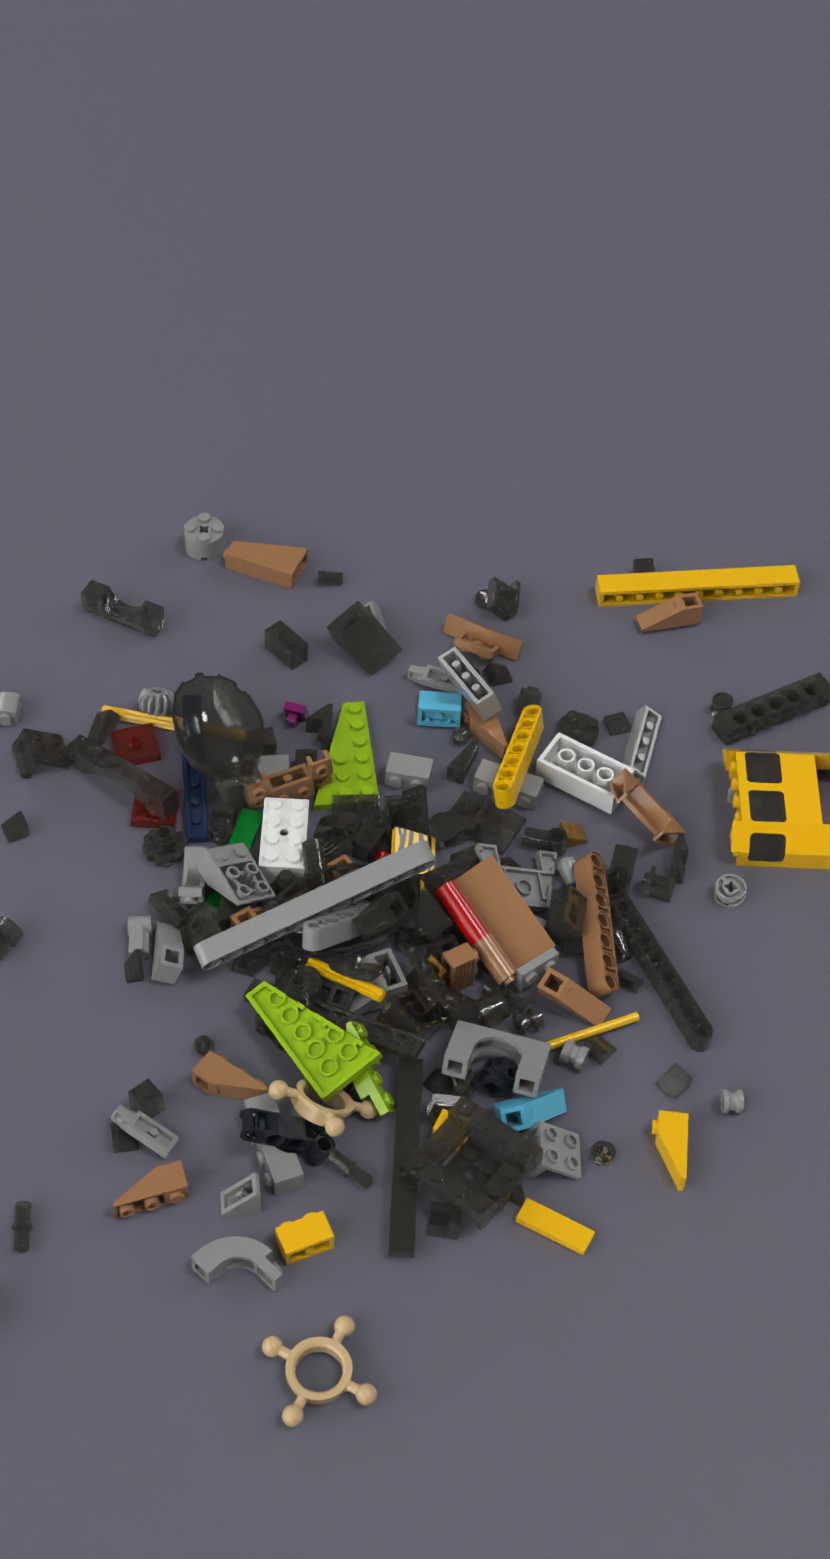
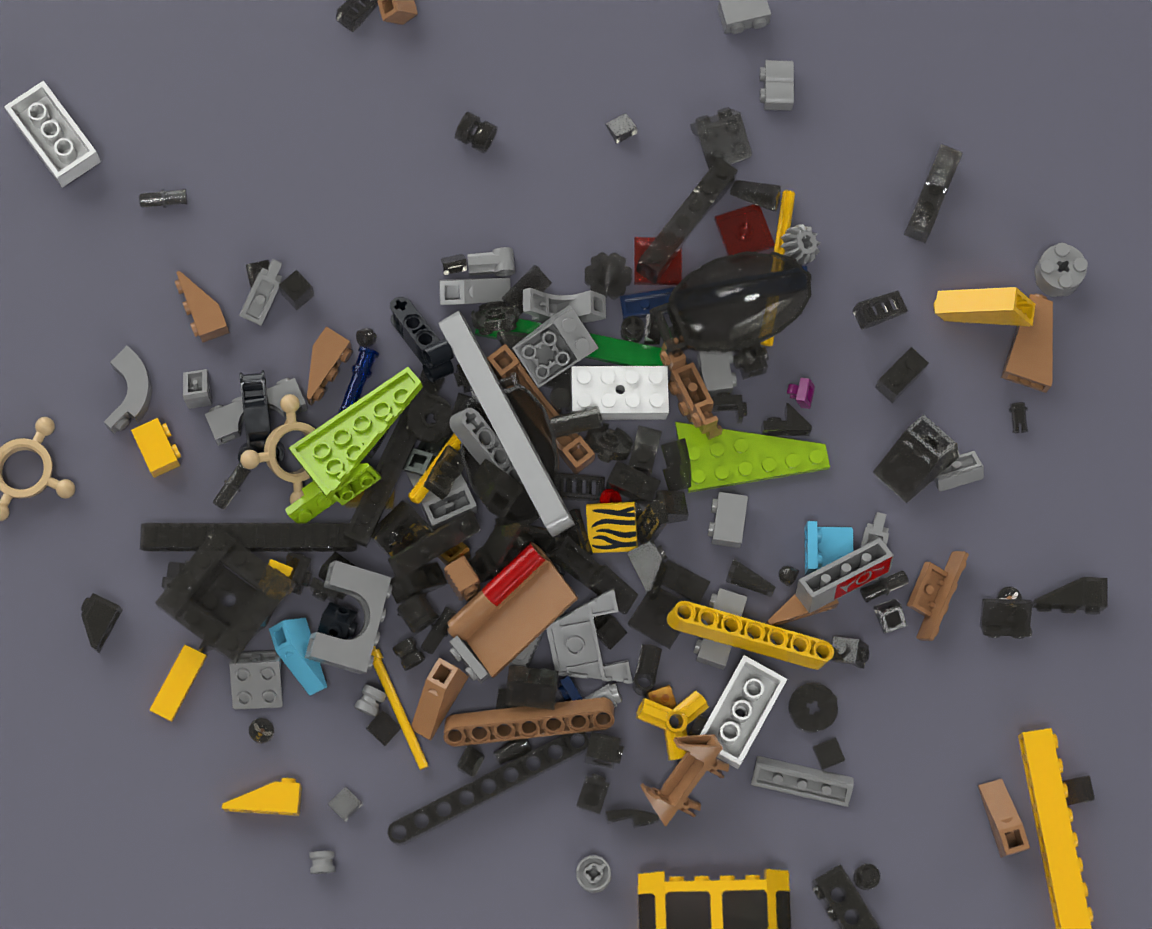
camera: 85 degrees right, 25 degrees up
(215, 988) = (421, 339): none -> black piece
(223, 661) = (866, 316): none -> clear smoke slope
(233, 580) = (985, 306): none -> yellow slope
(239, 1050) = (361, 372): none -> clear blue pin
(483, 554) = (1082, 594): none -> clear smoke slope
(490, 1296) = (99, 619): none -> clear smoke slope
(593, 822) = (659, 716): none -> yellow piece
(597, 806) = (698, 725): none -> clear smoke tile

